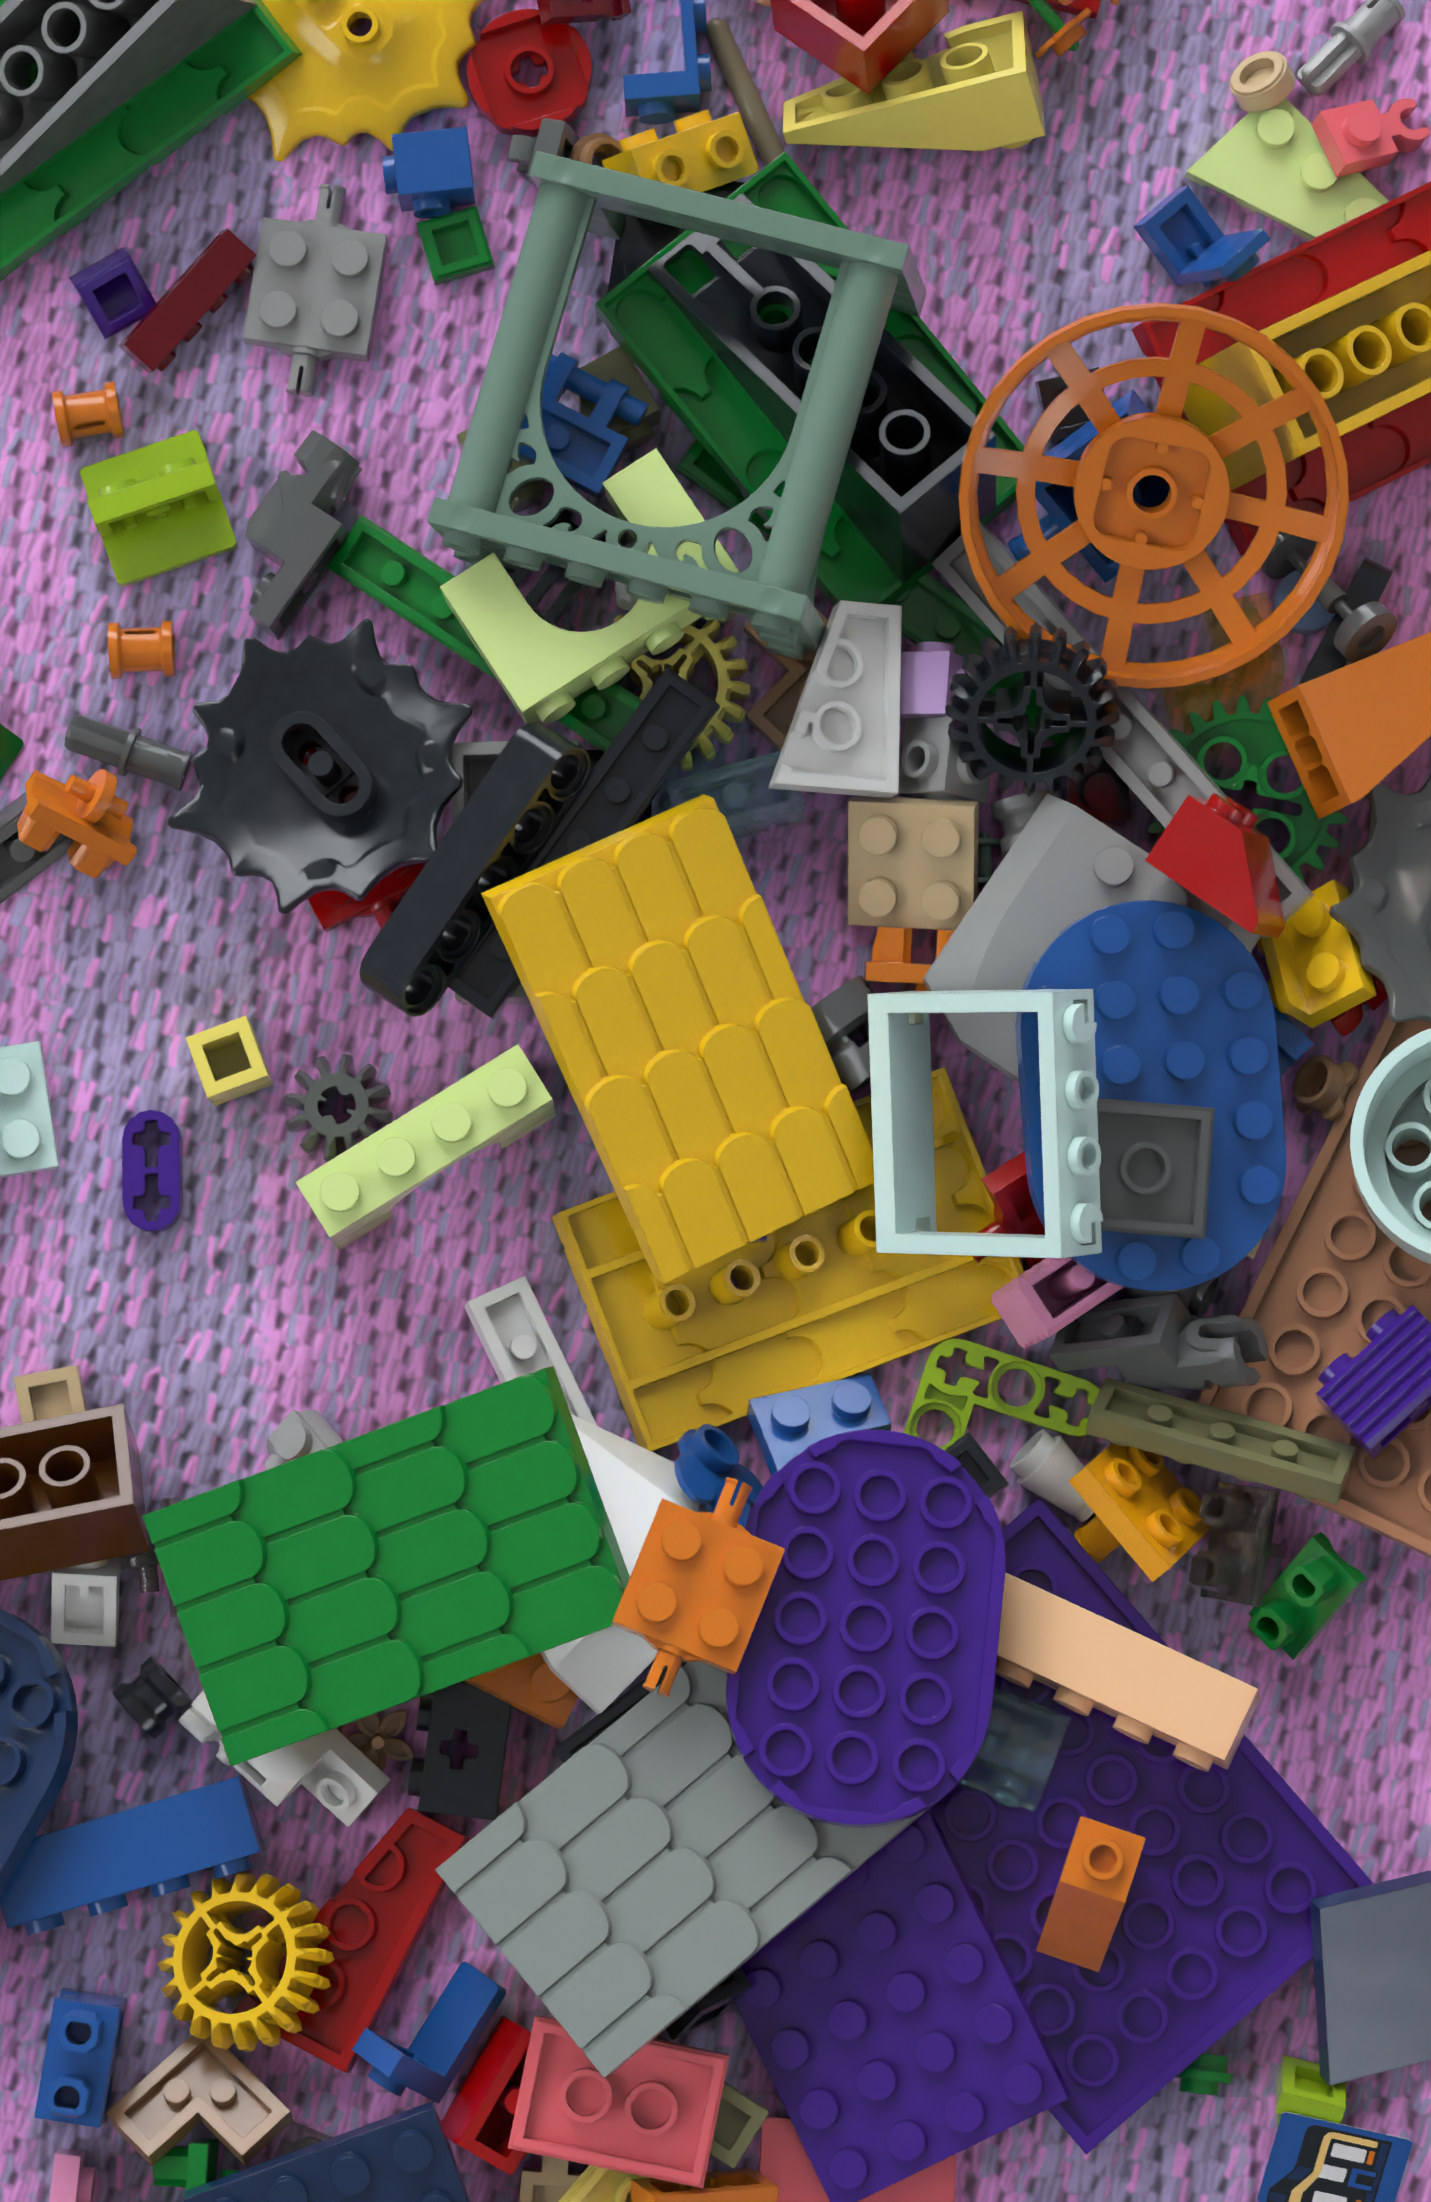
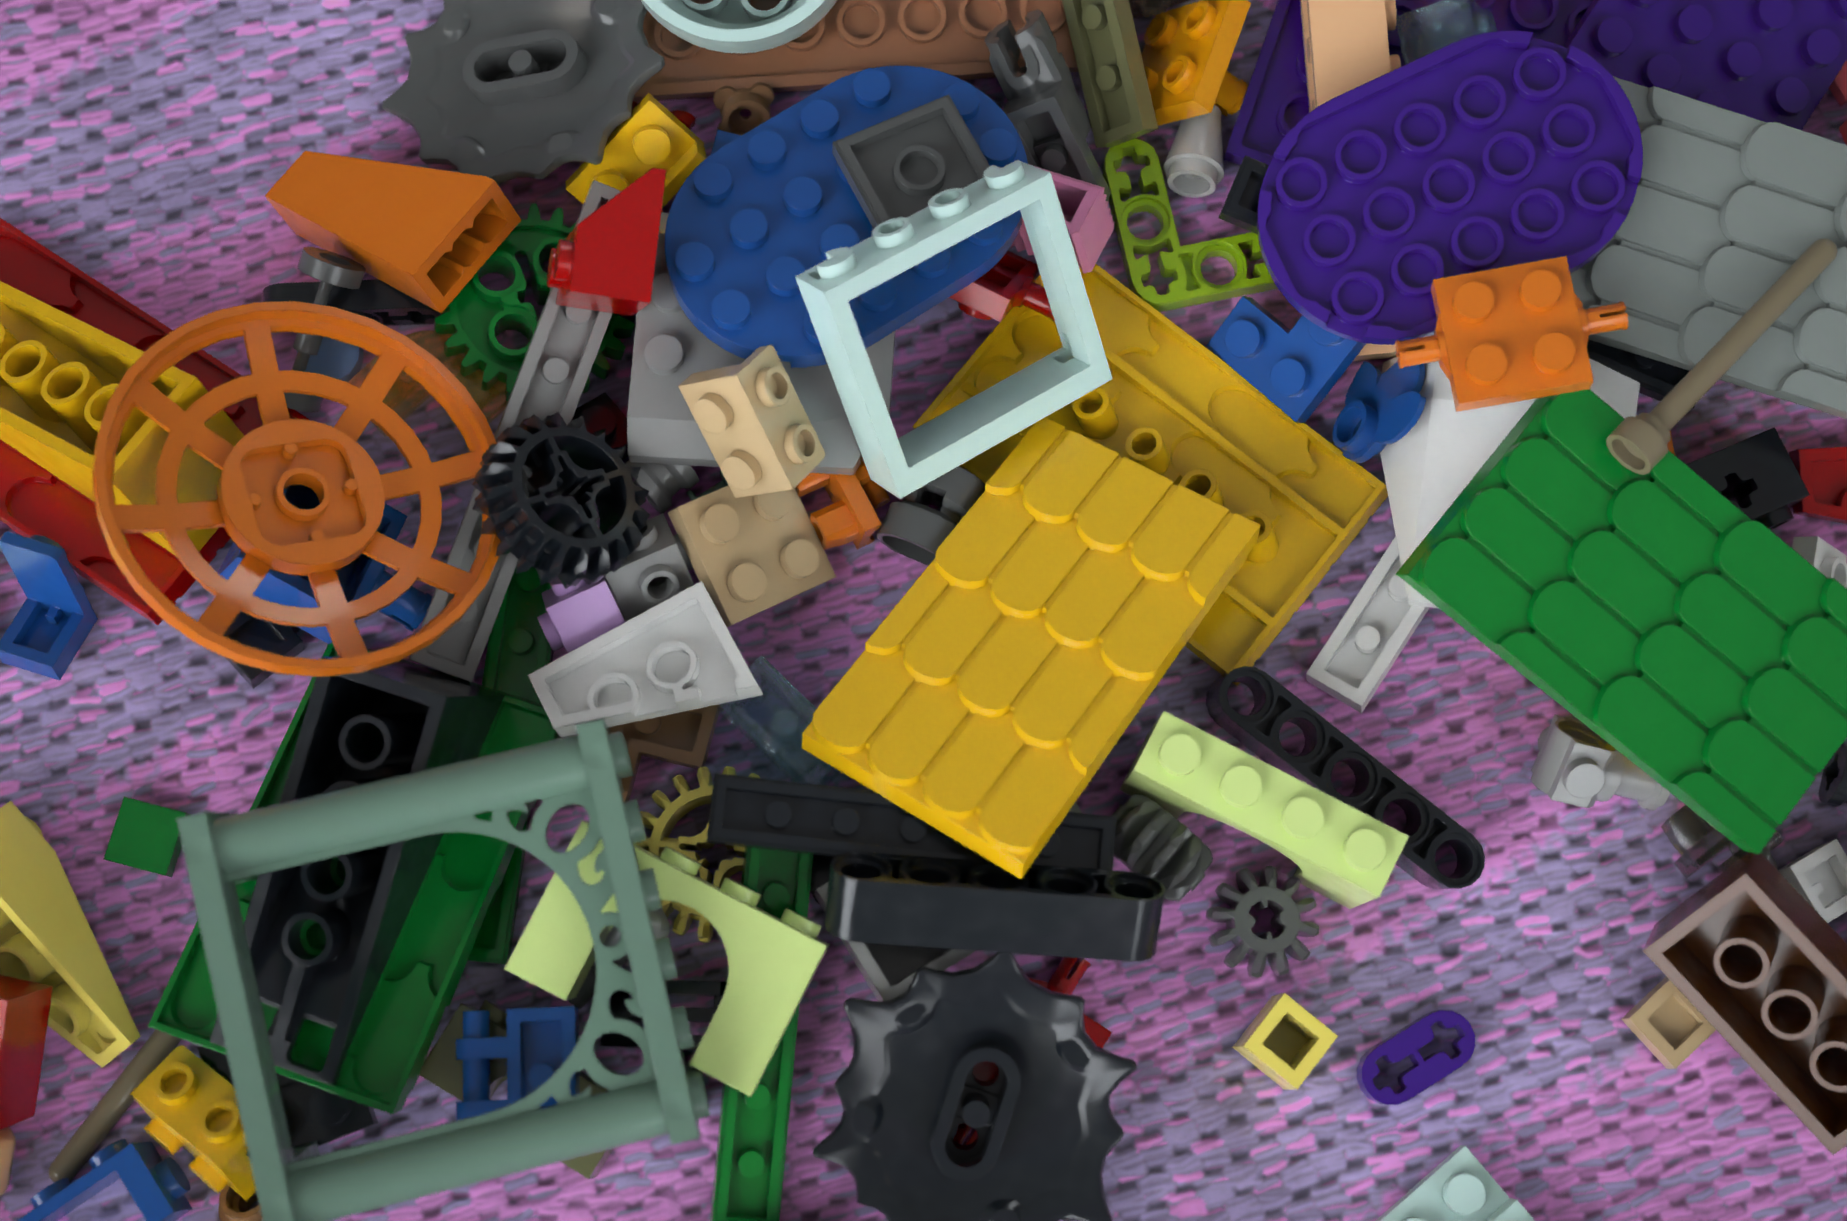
camera: 120 degrees left, 5 degrees down
(383, 1247) = (1374, 782): none -> black beam
(447, 1049) = (1159, 846): none -> dark grey gear
(540, 1640) = (1642, 440): none -> dark tan piece
(956, 232) = (146, 837): none -> green tile
(1000, 905) = (754, 424): none -> tan bracket

